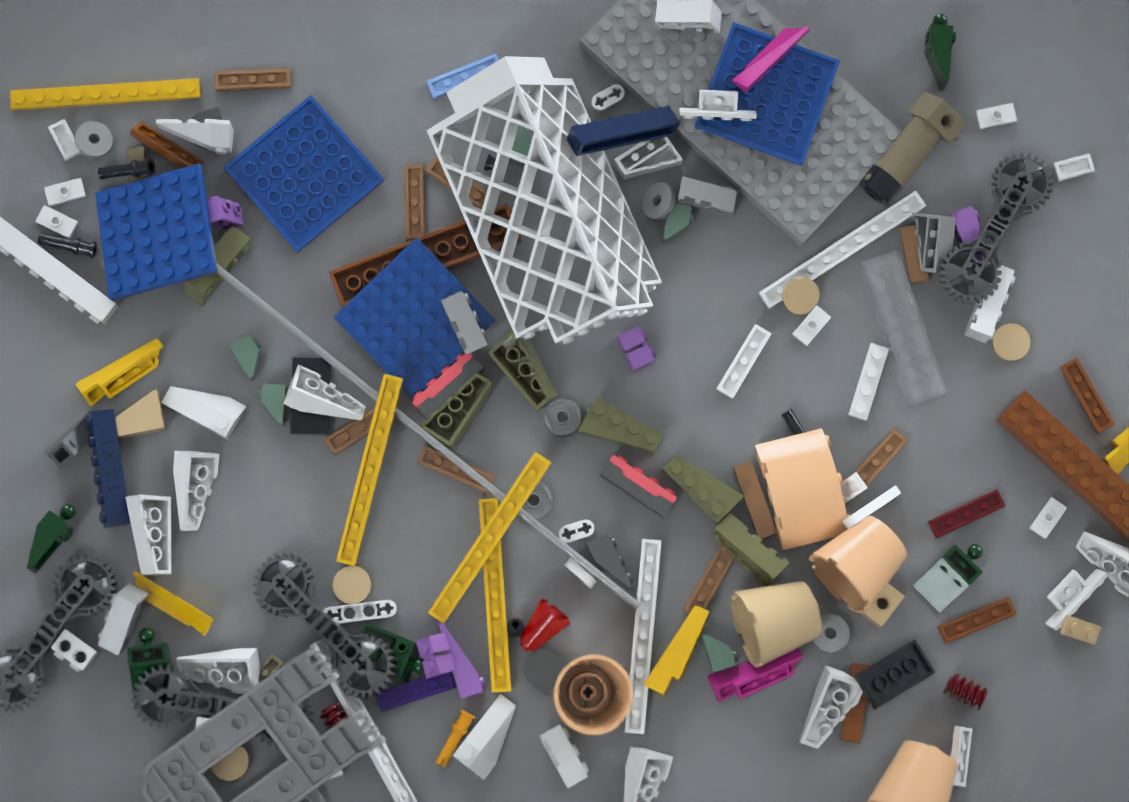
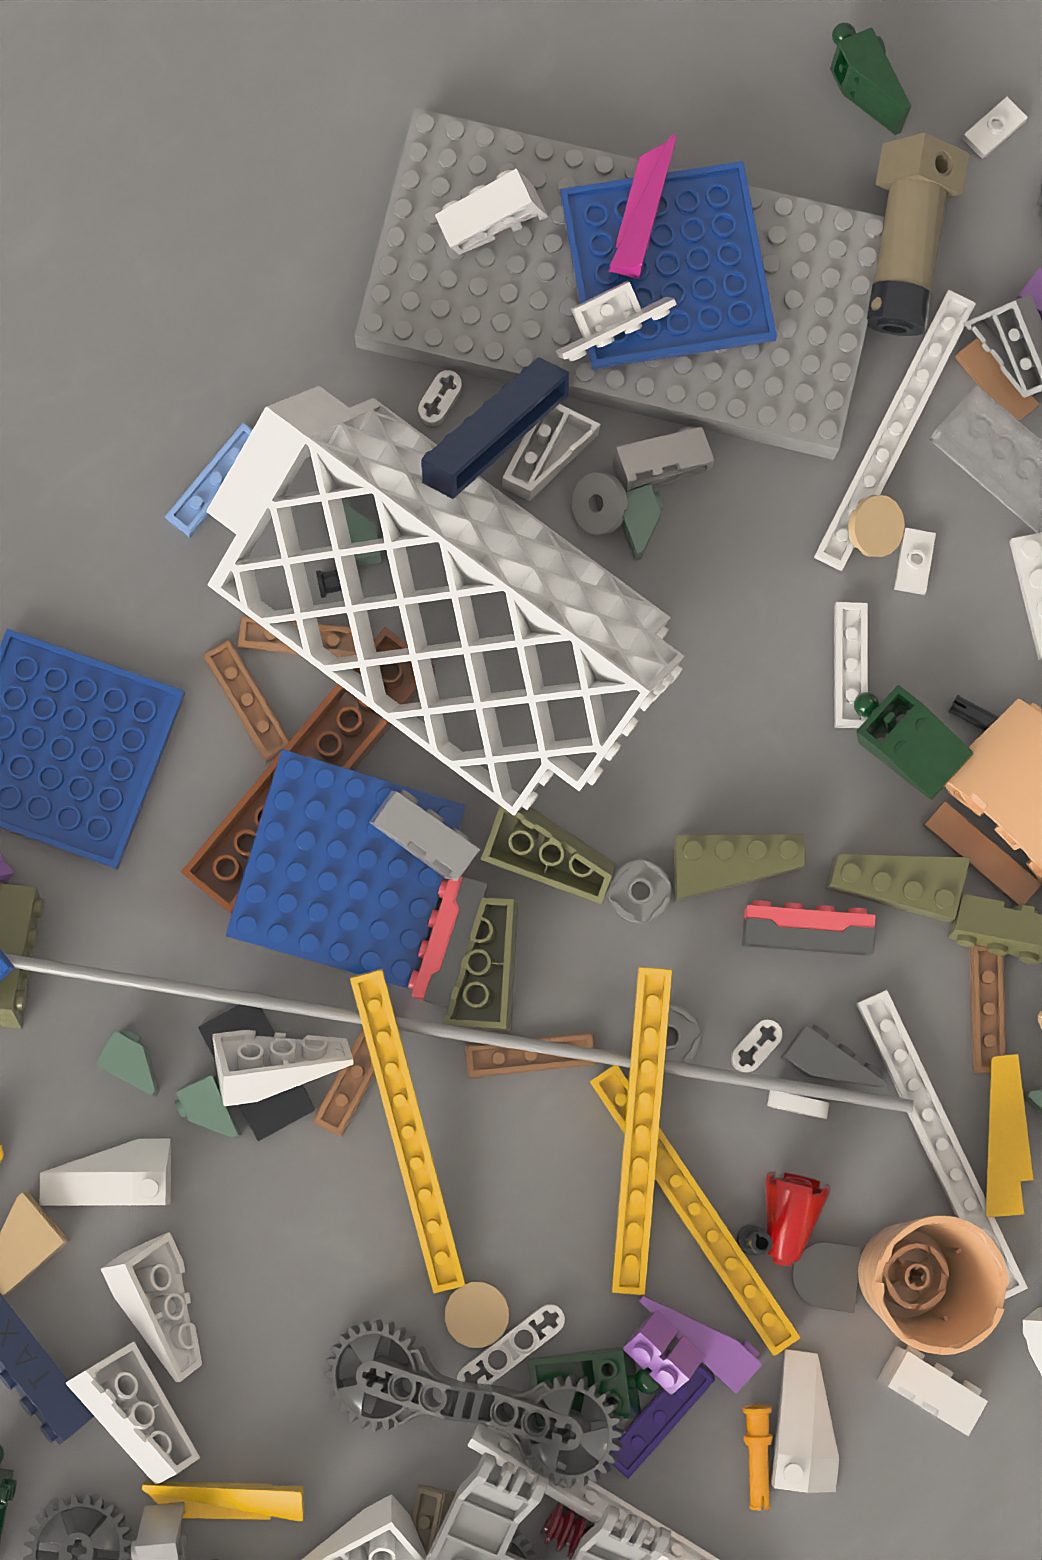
camera: 30 degrees left, 0 degrees up
(634, 339) = (676, 723): medium lavender piece -> none
(750, 417) = (917, 746): none -> dark green slope

